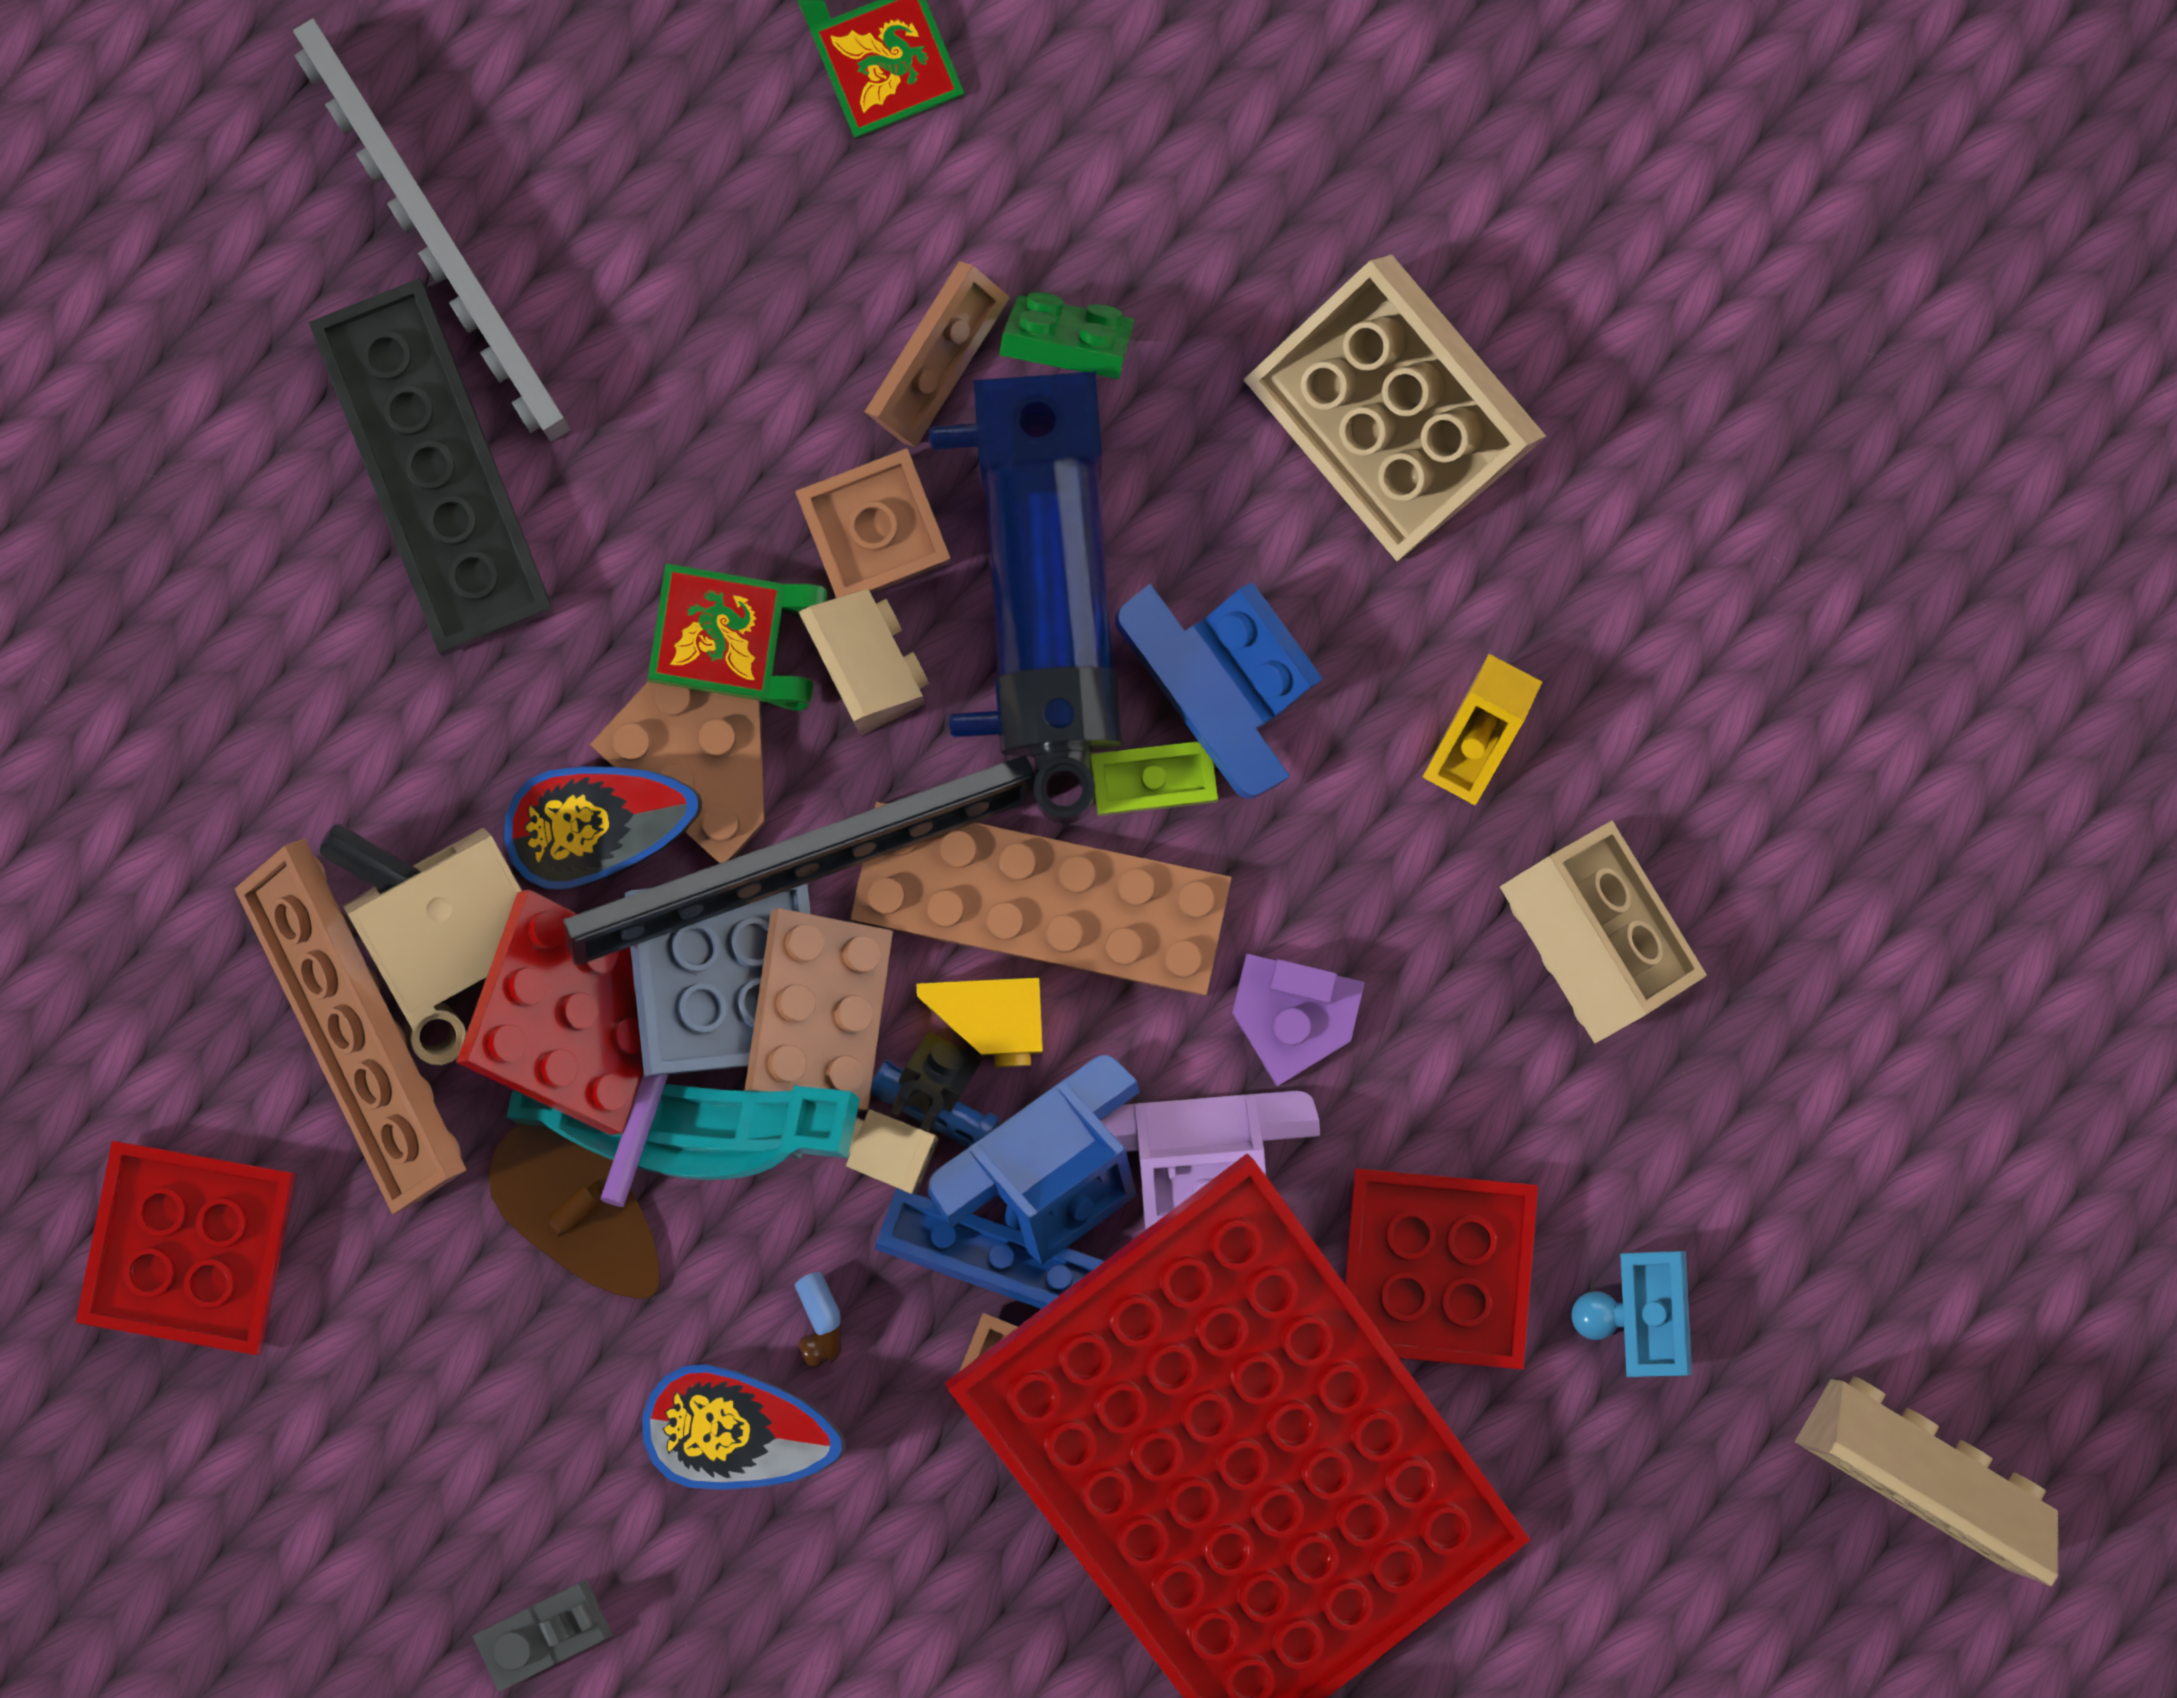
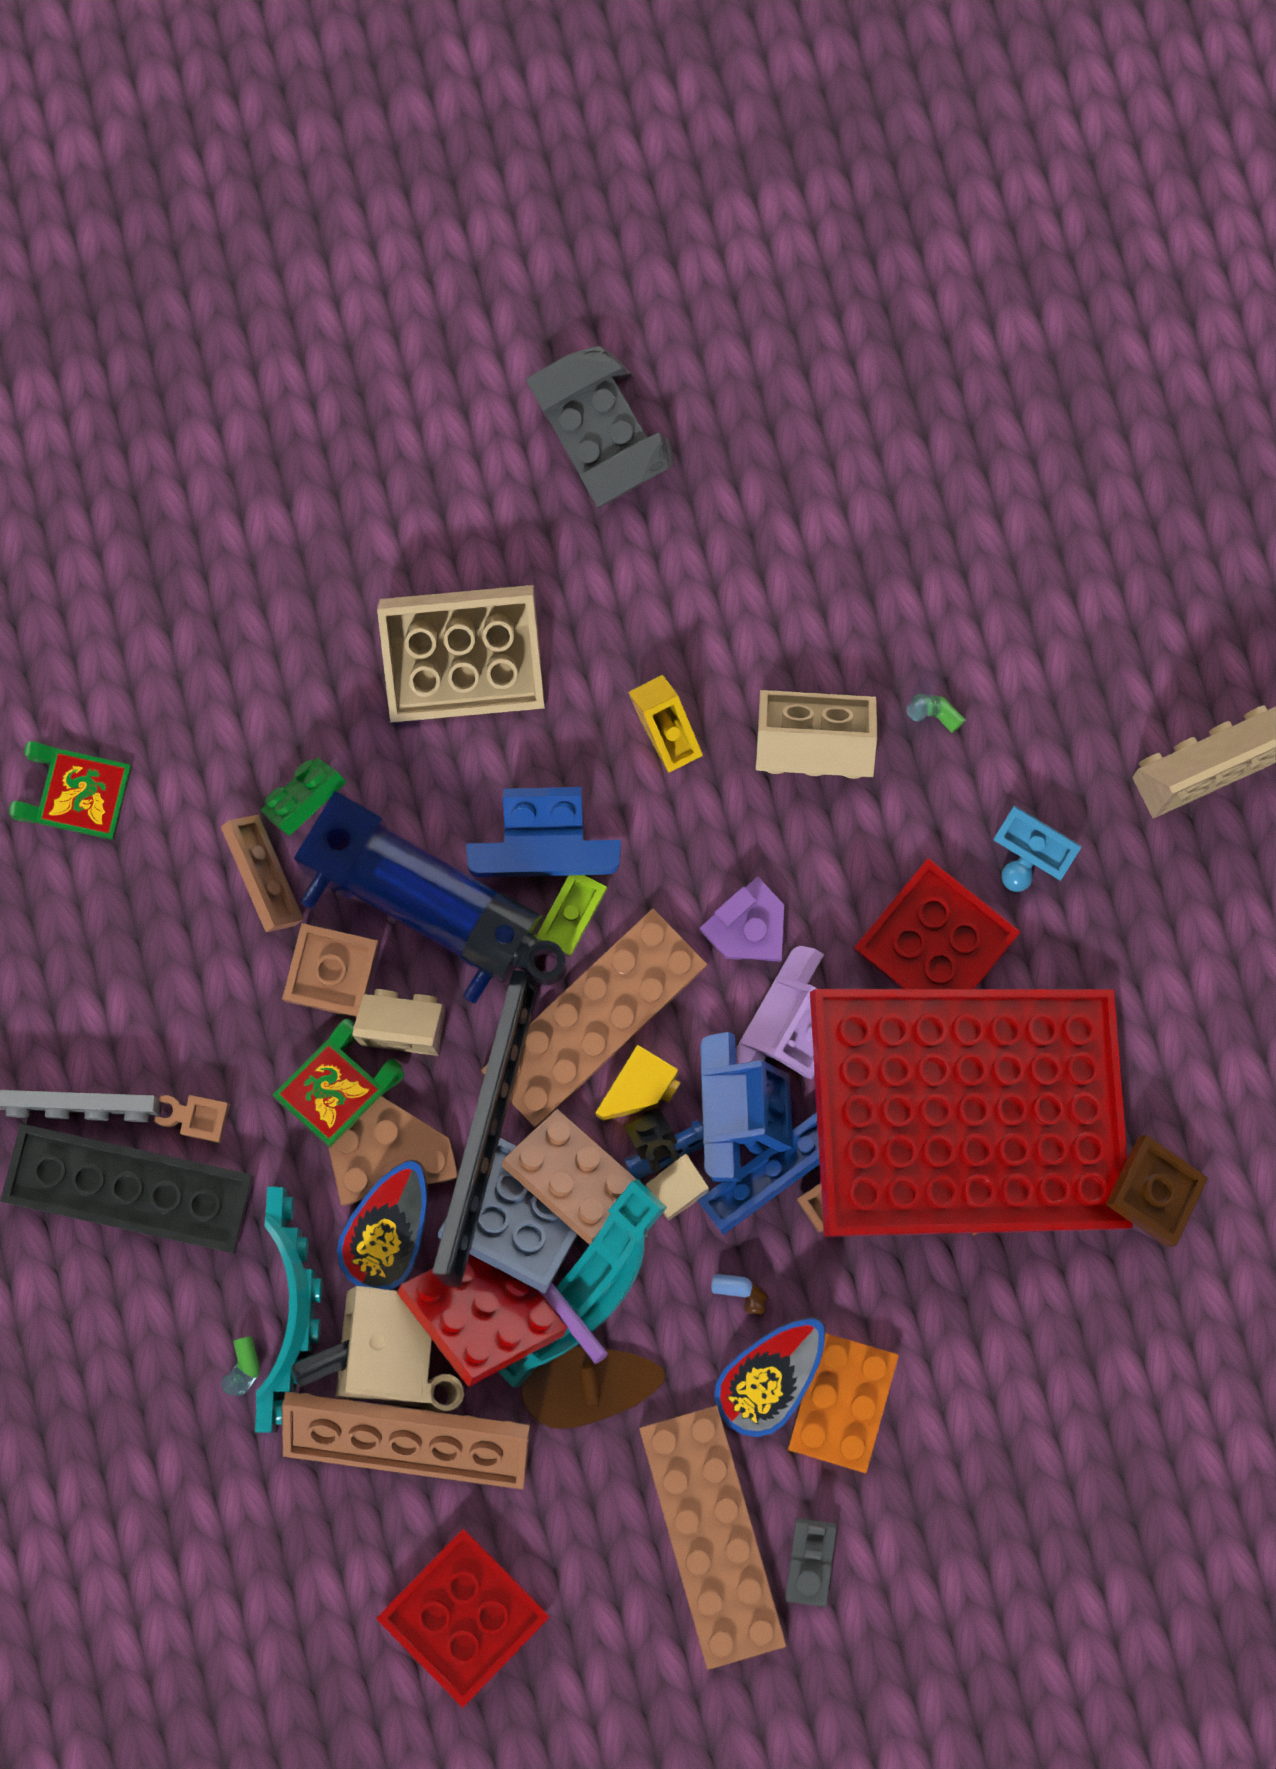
camera: 50 degrees left, 5 degrees down
(304, 769) = (245, 1371): none -> arm
(447, 773) = (303, 1294): none -> teal piece
(491, 1490) = (712, 1537): none -> nougat plate
(578, 493) = (199, 1118): none -> nougat plate
(767, 1546) = (844, 1404): none -> orange plate
(1745, 1059) = (935, 706): none -> arm
(1819, 373) = (598, 424): none -> dark grey piece

